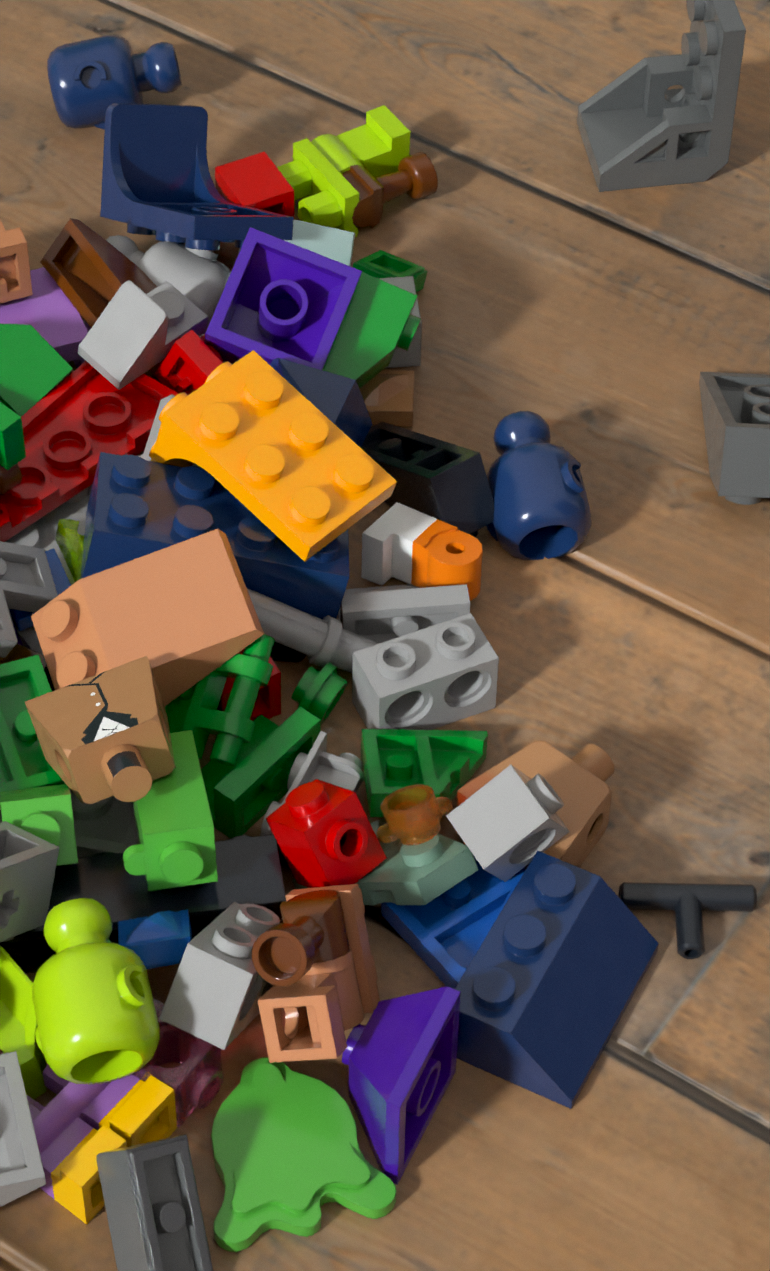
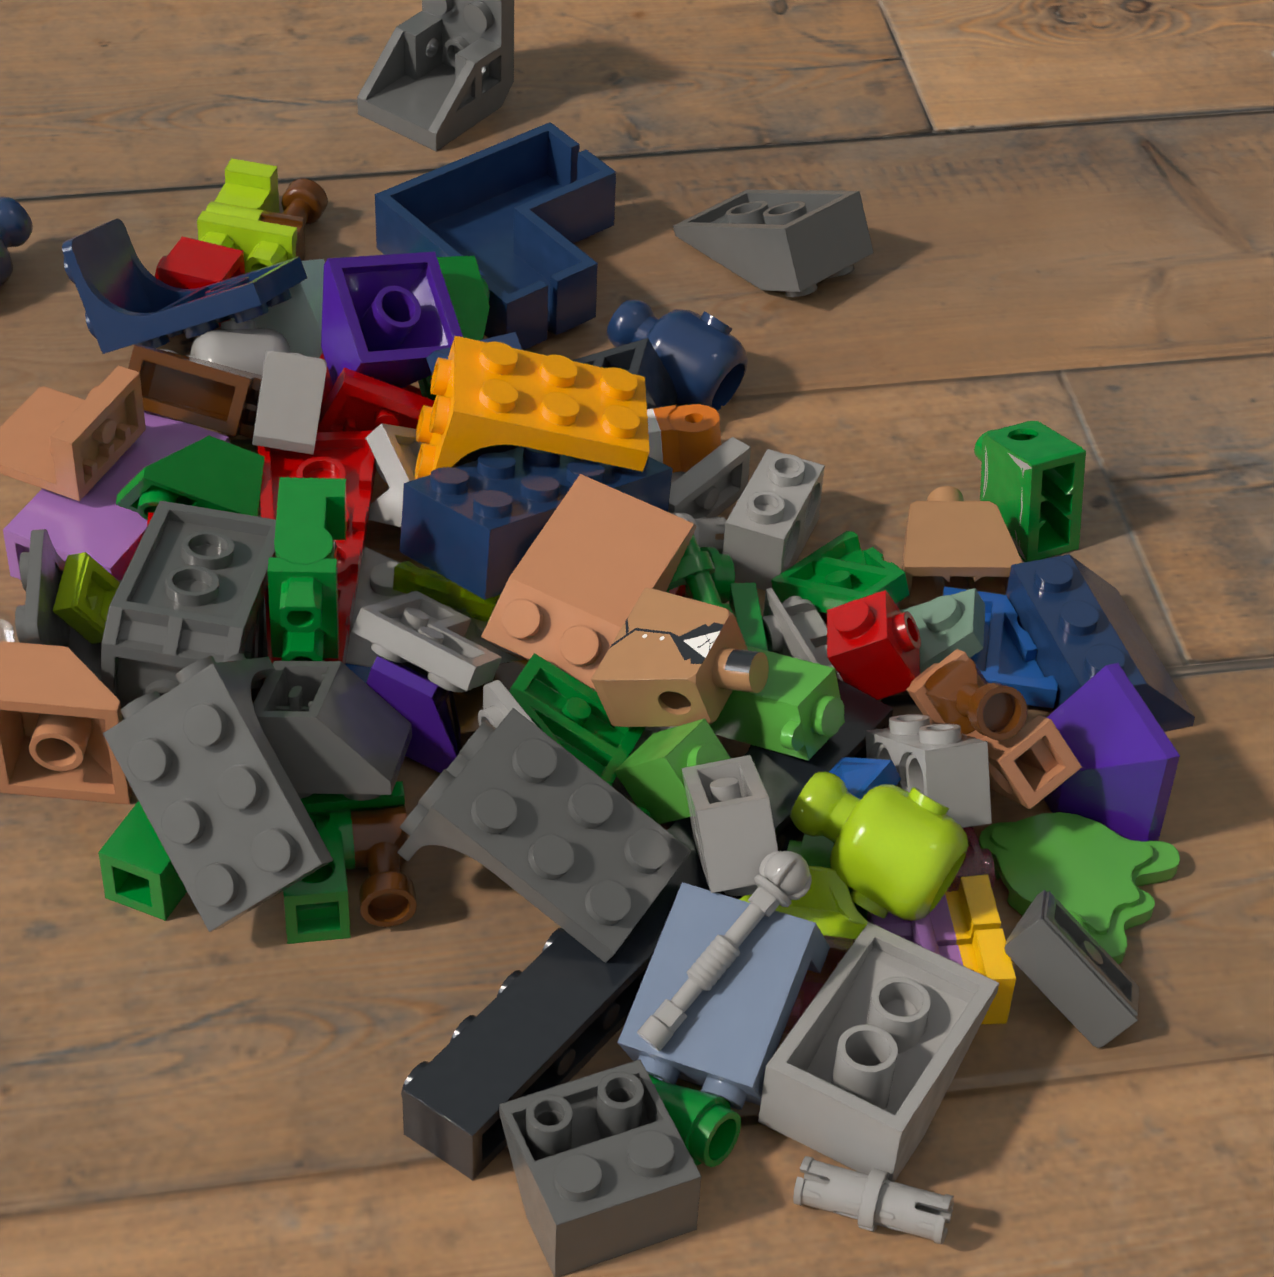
camera: 45 degrees left, 5 degrees down
(412, 815) = (918, 589): clear orange plate -> none
(509, 821) = (983, 552): light grey brick -> none
(523, 272) = (519, 217): none -> dark blue piece
(676, 771) = (1036, 485): none -> green torso
(688, 902) = (1104, 553): black piece -> none

